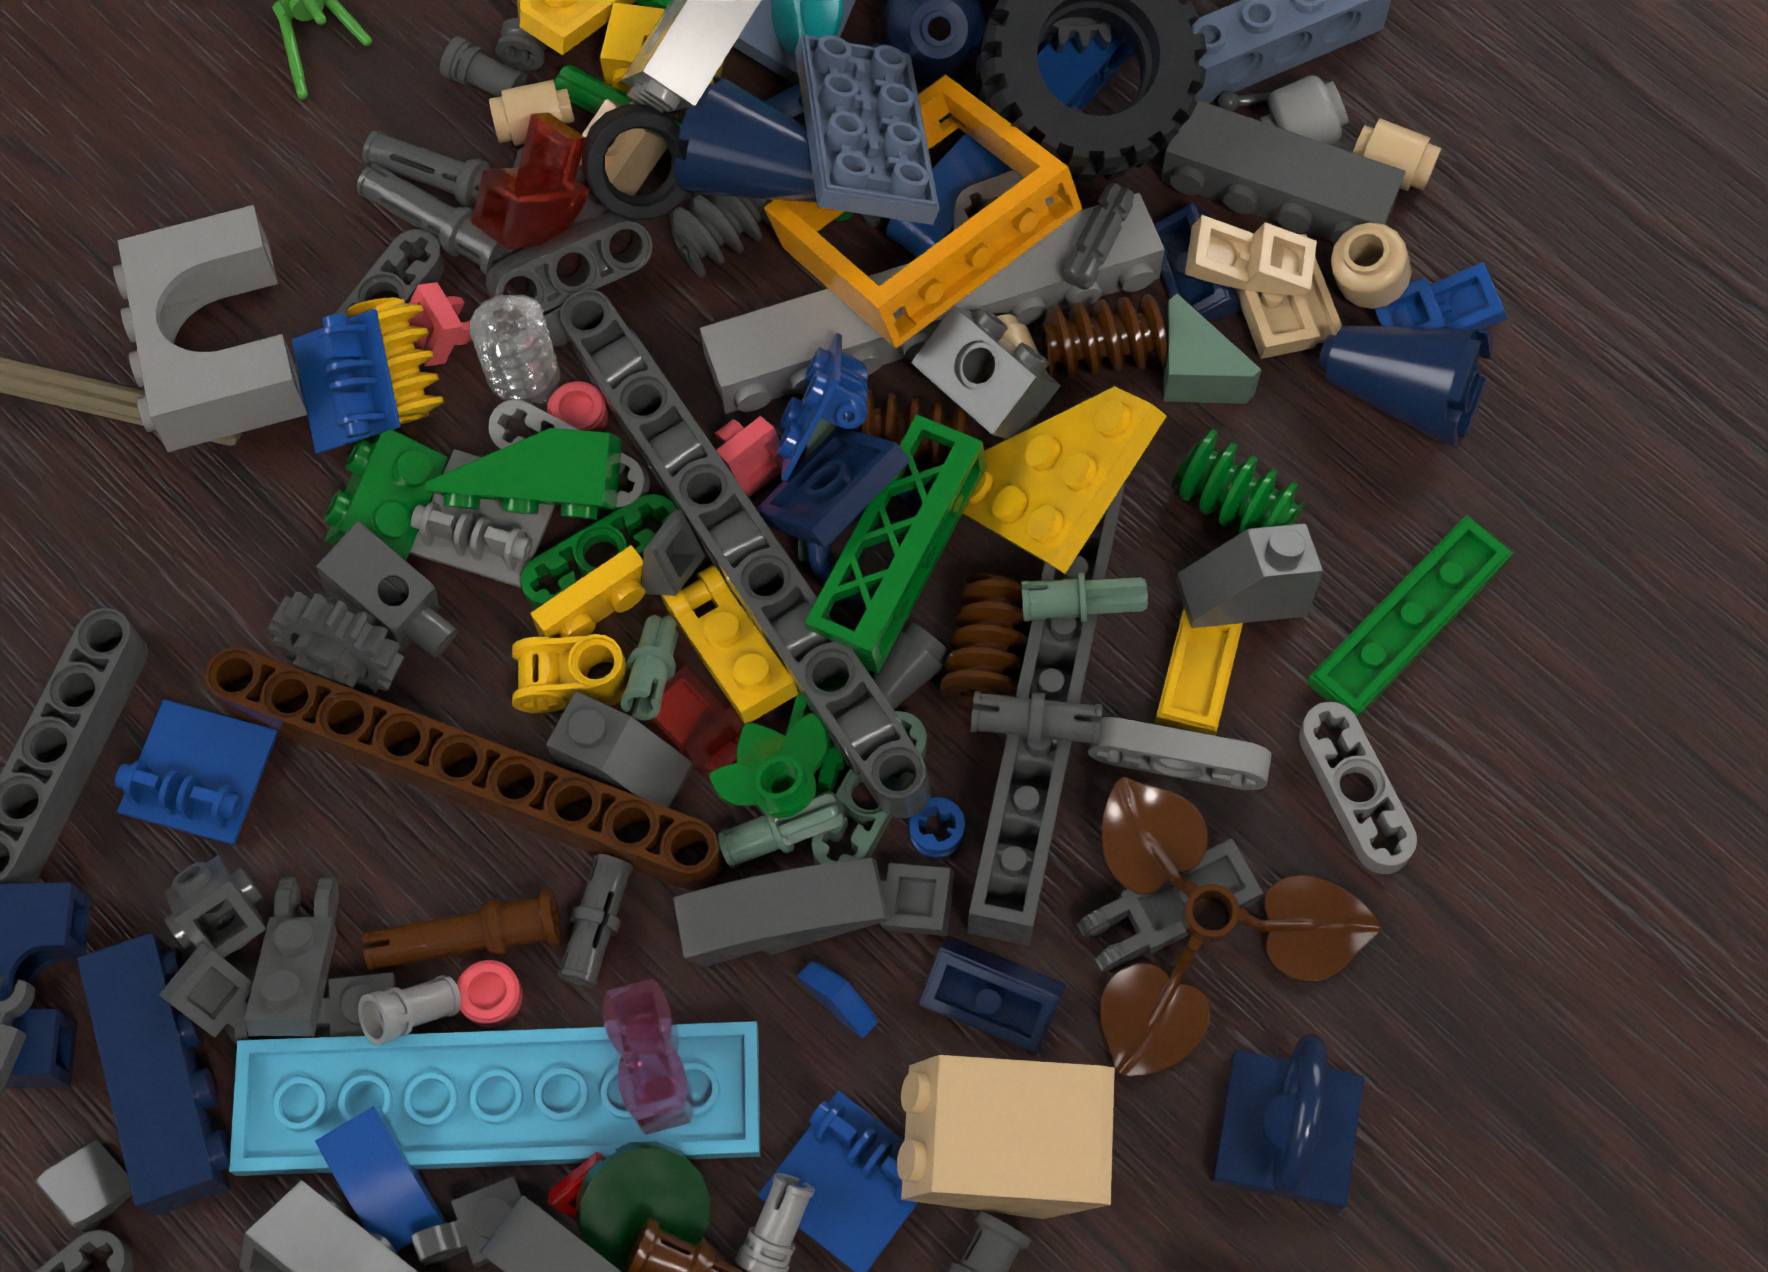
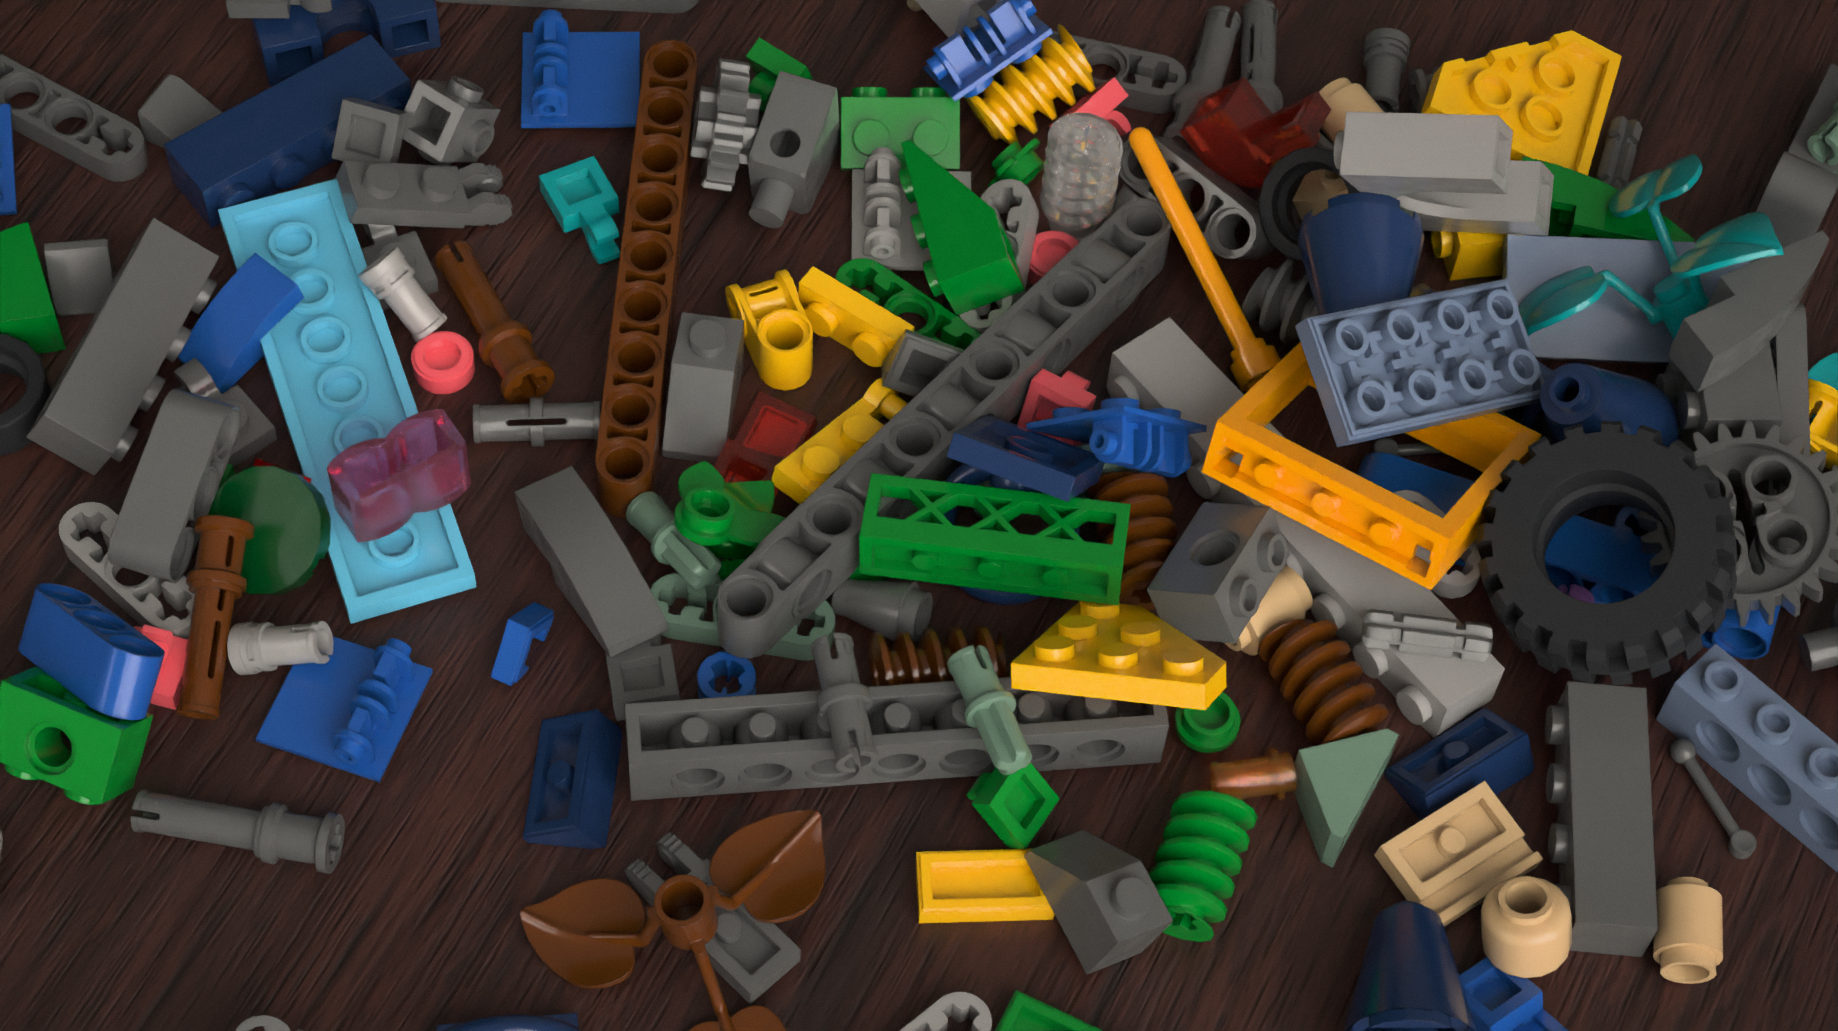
camera: 65 degrees right, 10 degrees down
(277, 579) = (767, 63): none -> green tile
(351, 805) = (584, 199): none -> teal plate
(469, 406) = (1017, 163): none -> green plate
(650, 667) = (801, 385): sand green axle -> none
(751, 281) = (1250, 354): none -> light orange piece
(1007, 1135) = (409, 791): tan slope -> none
(1142, 628) = (1013, 804): none -> green tile
(1166, 441) = (1255, 776): none -> clear orange pin
(1182, 754) = (880, 882): light grey beam -> none
(1258, 262) = (1475, 798): tan slope -> none
(1308, 109) = (1694, 823): light grey head -> none

